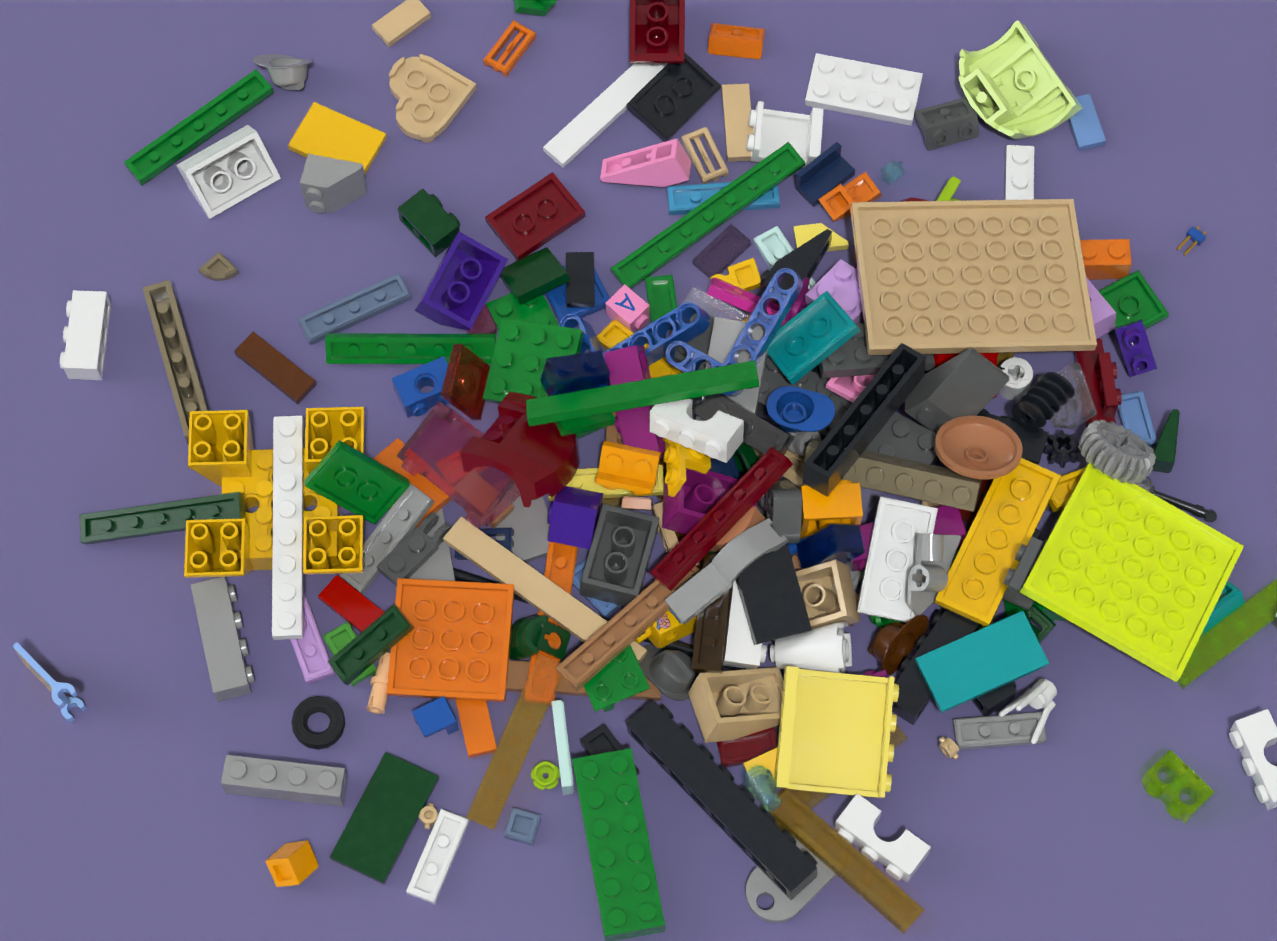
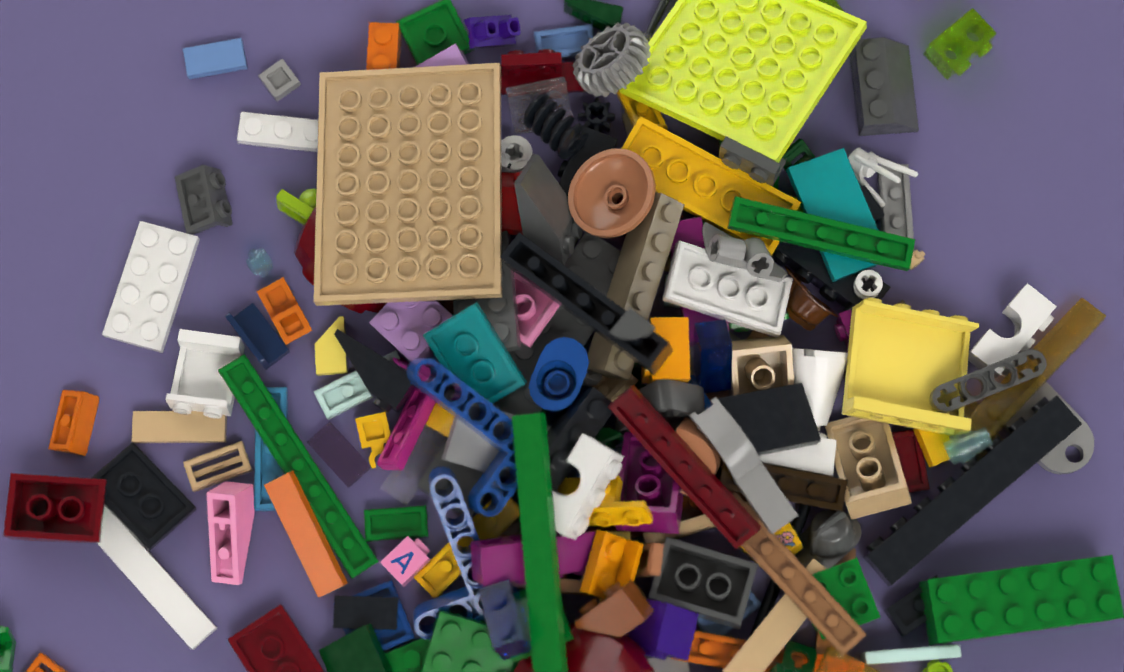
camera: 90 degrees left, 10 degrees up
(587, 469) = (617, 613): none -> dark orange slope
(647, 226) = (305, 534): none -> orange tile
(830, 804) = (988, 383): none -> dark grey beam
(841, 446) = (632, 327): none -> dark grey tile
(915, 700) = (878, 284): none -> white bush
(957, 639) = (821, 233): none -> green plate
(1016, 86) = (167, 123): yellowish green piece -> none
(1068, 175) = (279, 80): none -> light grey plate
(1123, 714) = (883, 87): none -> dark grey slope

